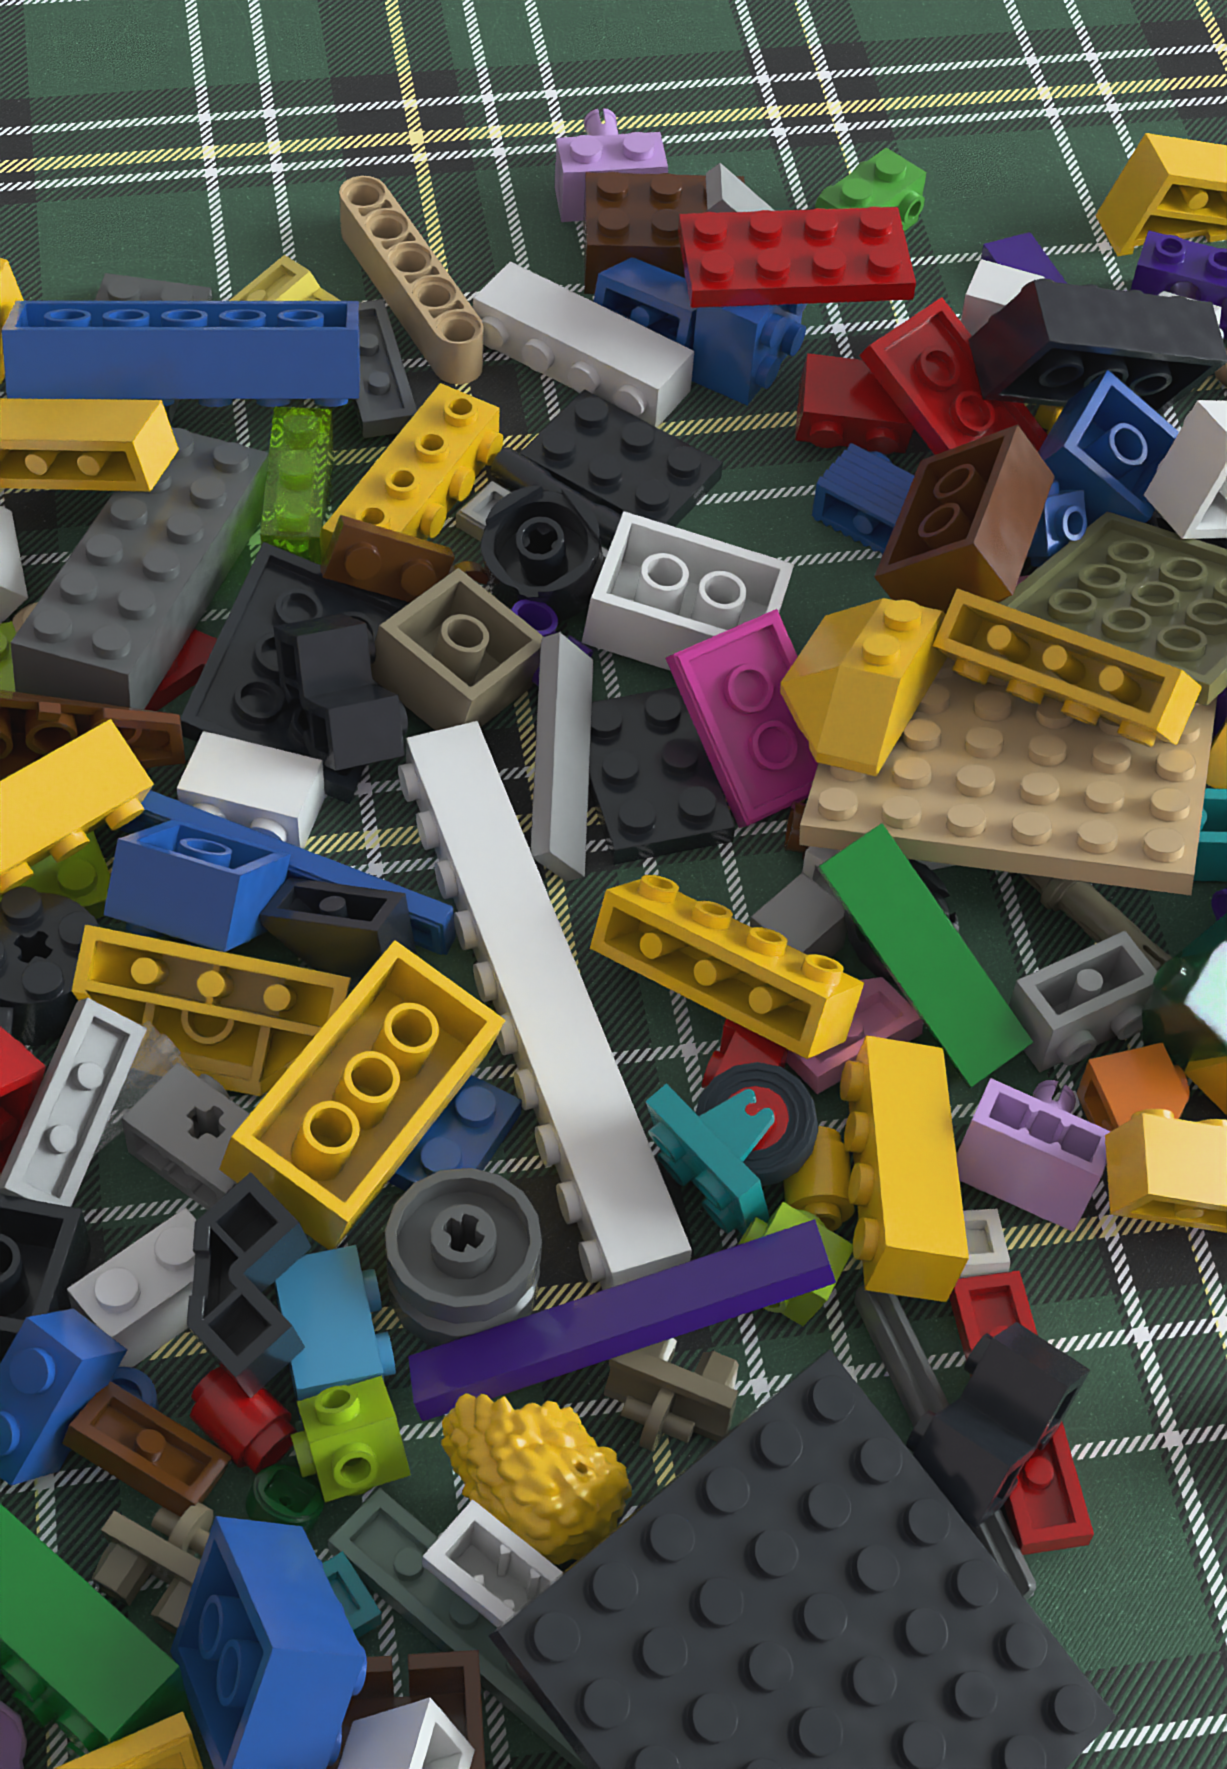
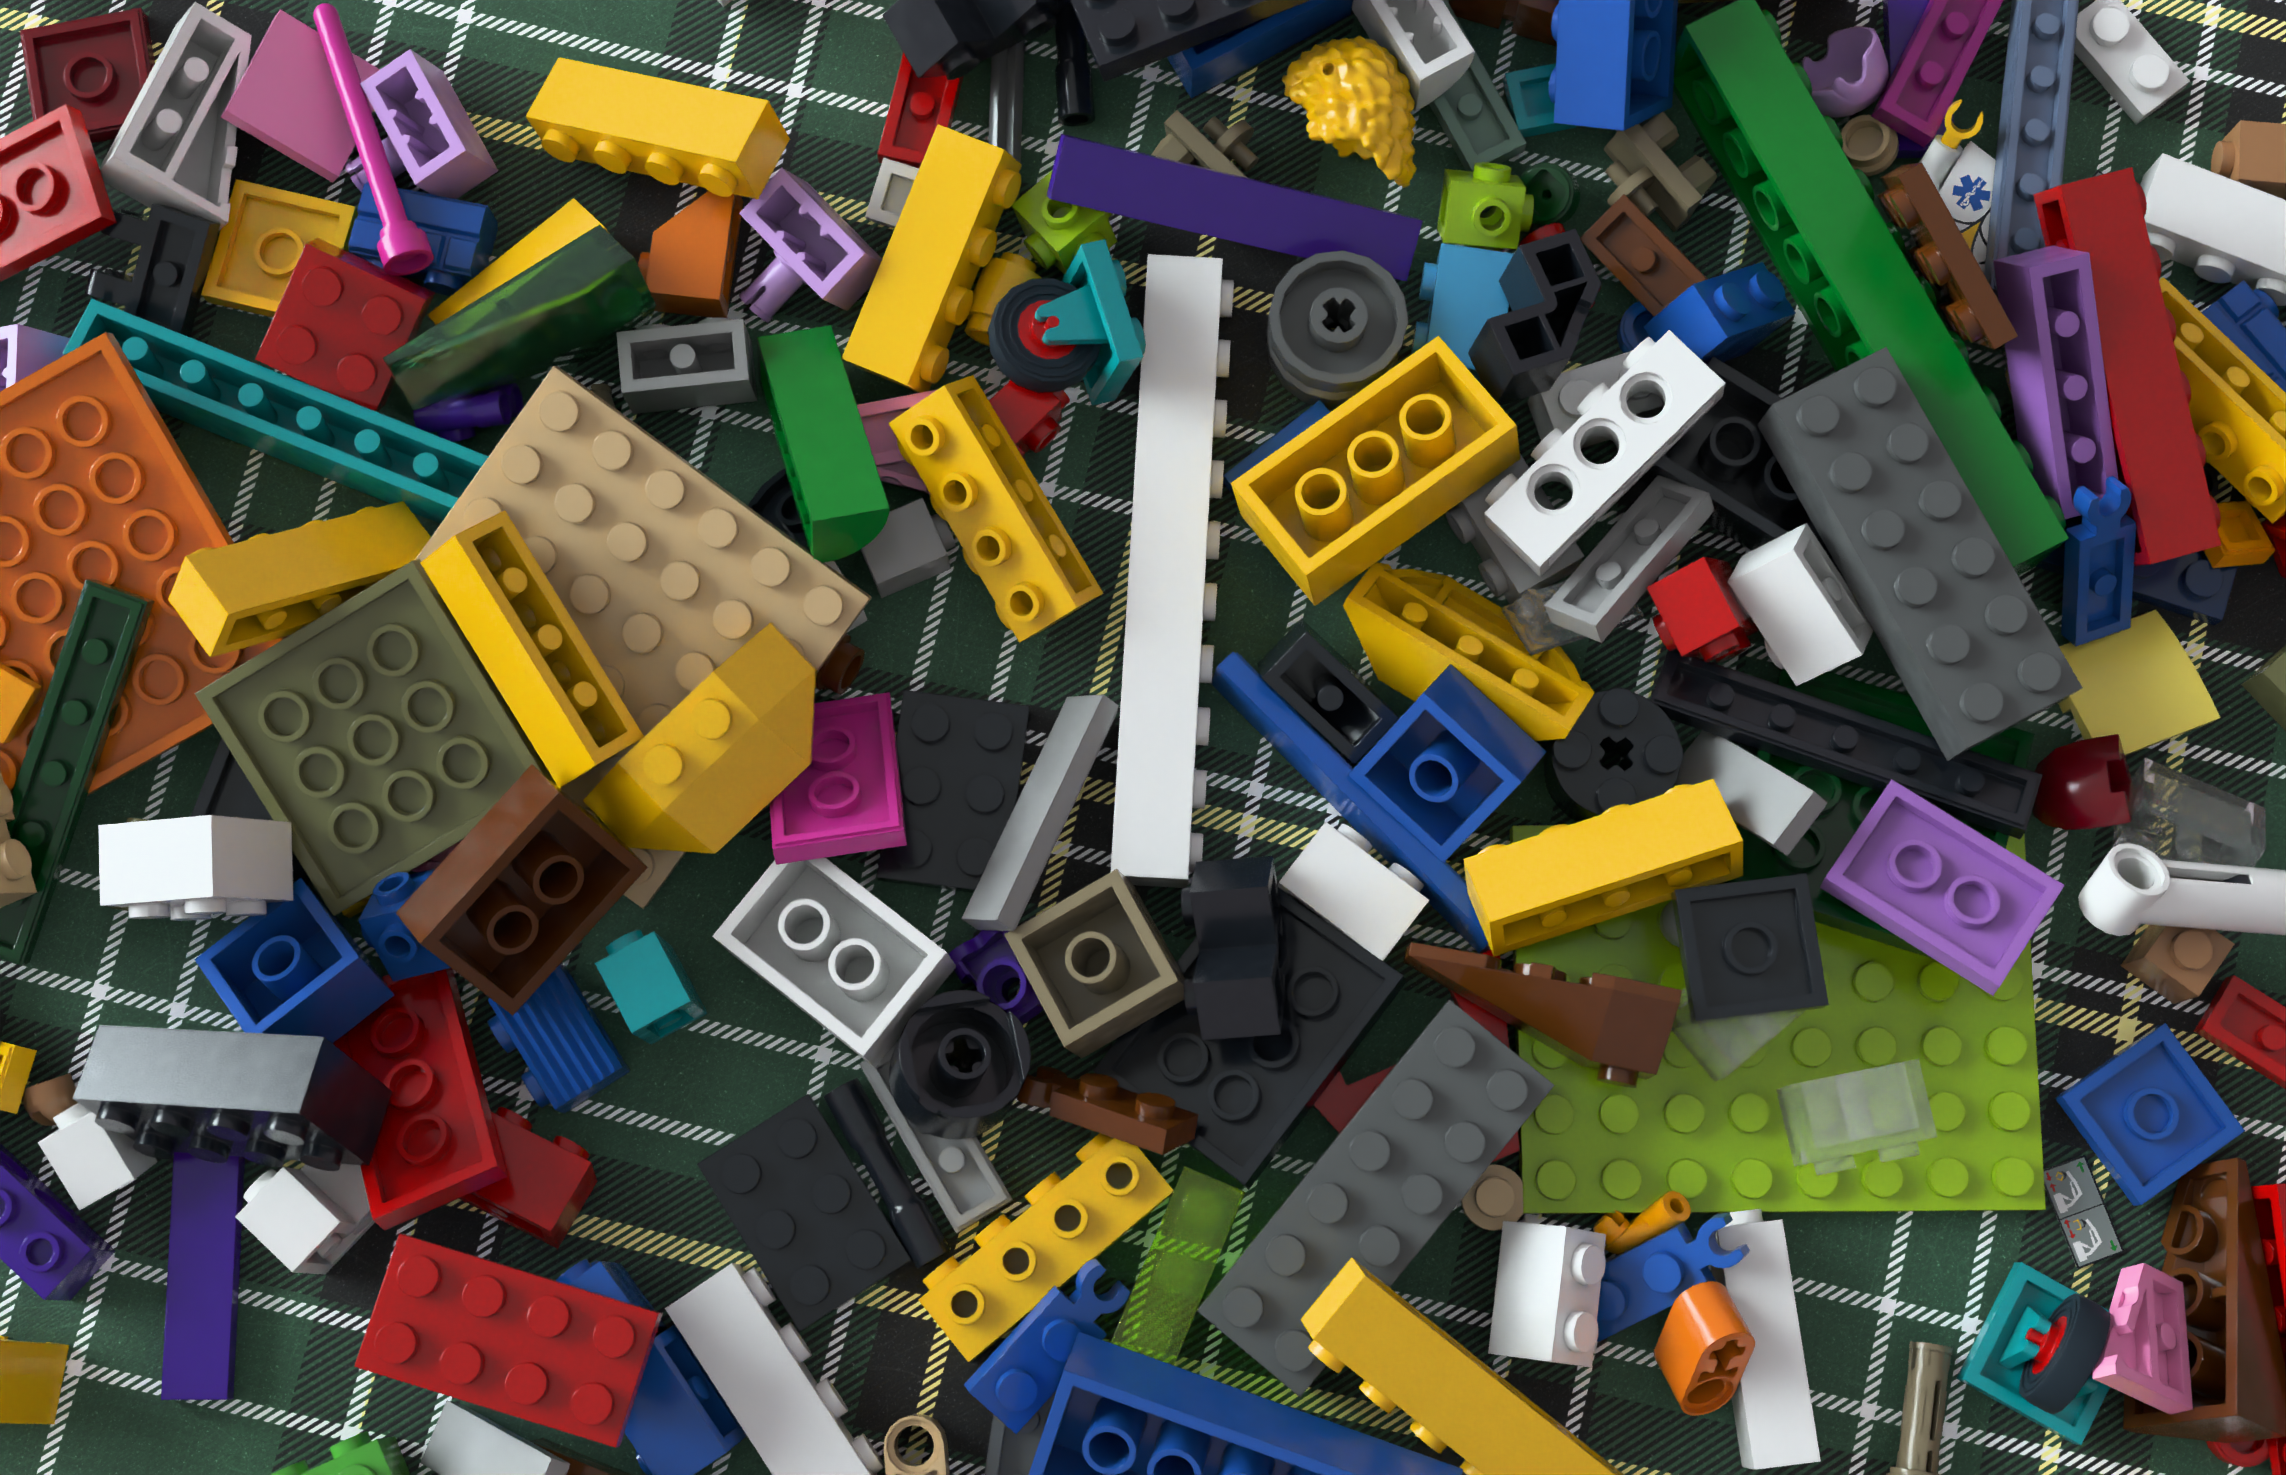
camera: 155 degrees left, 25 degrees up
(84, 1269) = (1659, 367): none -> white brick
(382, 407) = (1033, 1356): none -> blue plate
(825, 531) = (649, 985): none -> teal brick

